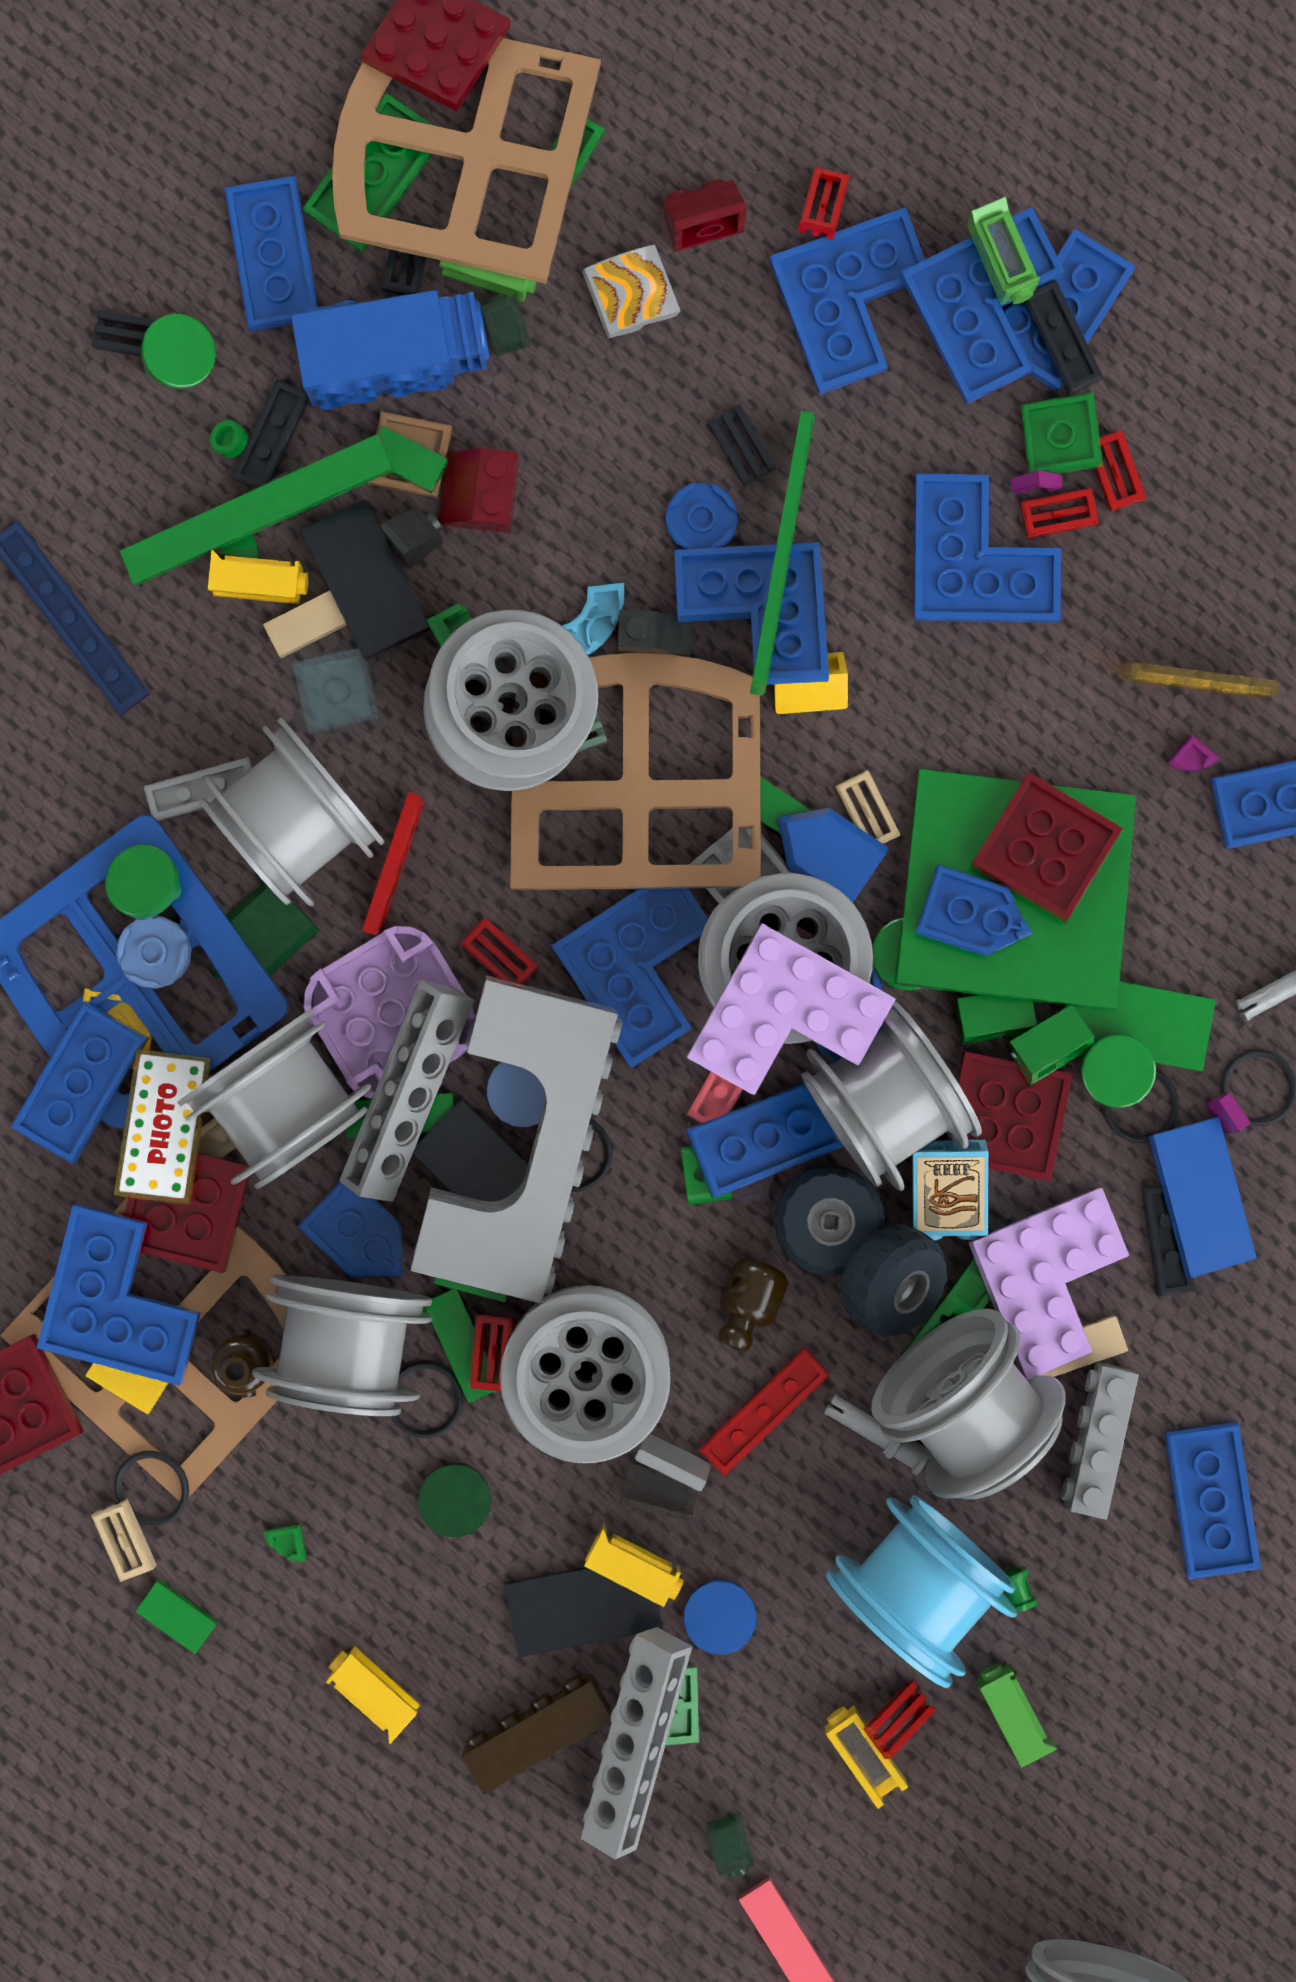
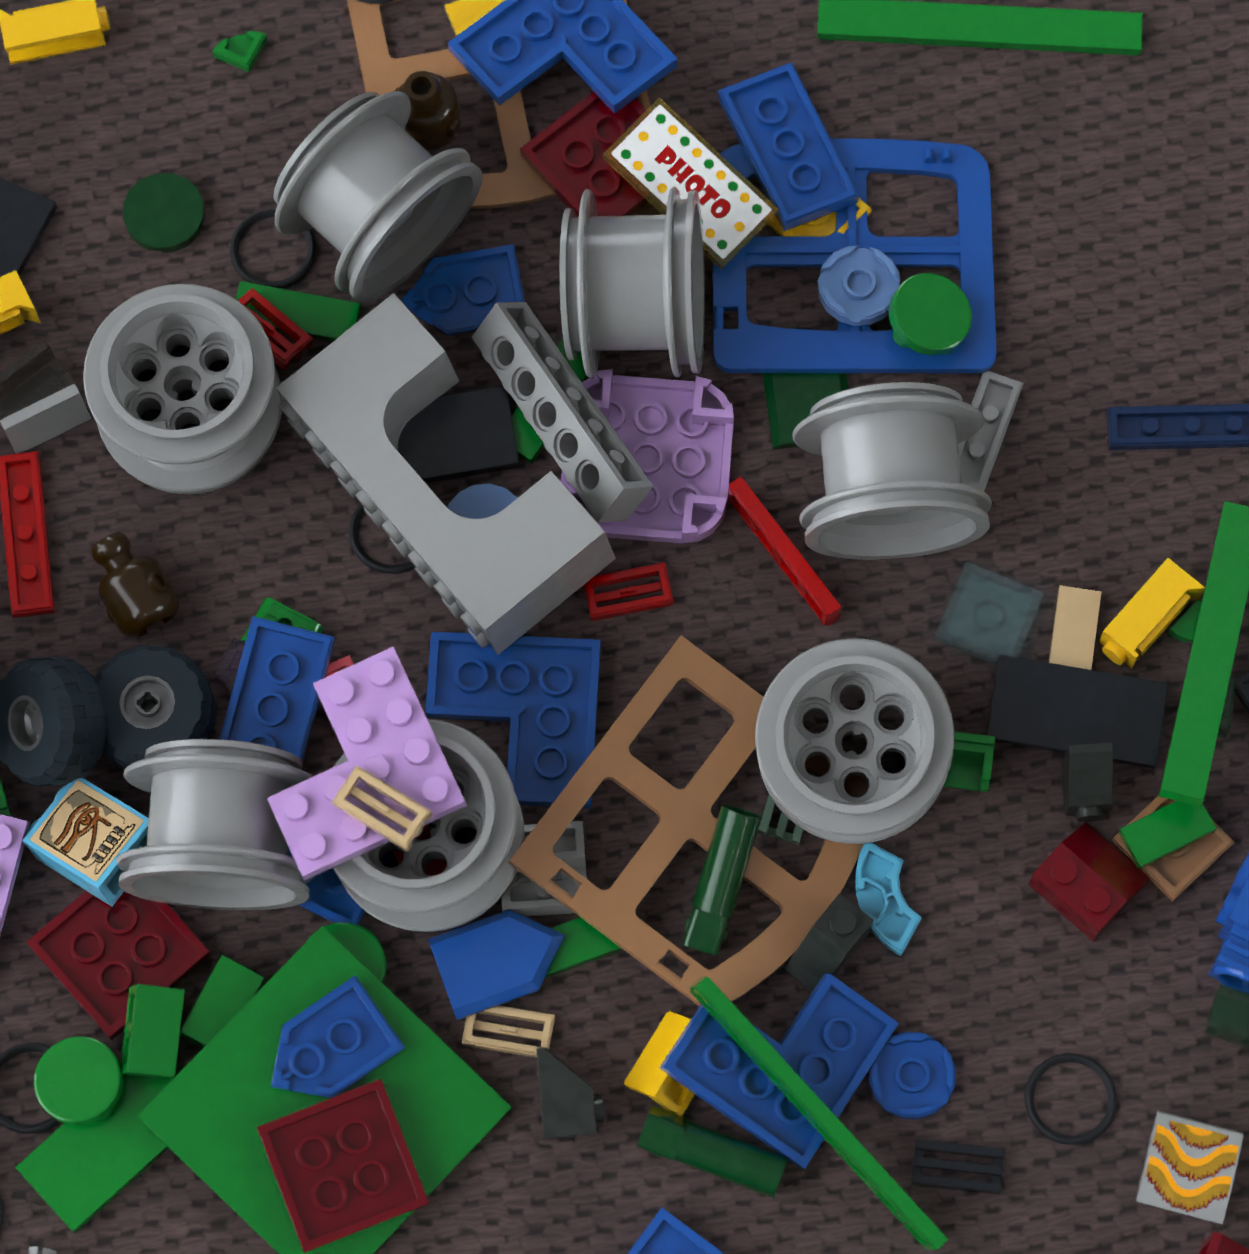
camera: 130 degrees right, 15 degrees down
(634, 370) = (1092, 1064): none -> black tyre
(665, 735) = (721, 879): none -> dark green piece
(813, 1007) = (413, 828): none -> tan tile
(860, 640) = (711, 1151): none -> dark green piece
(889, 733) = (565, 1099): none -> pearl dark grey slope

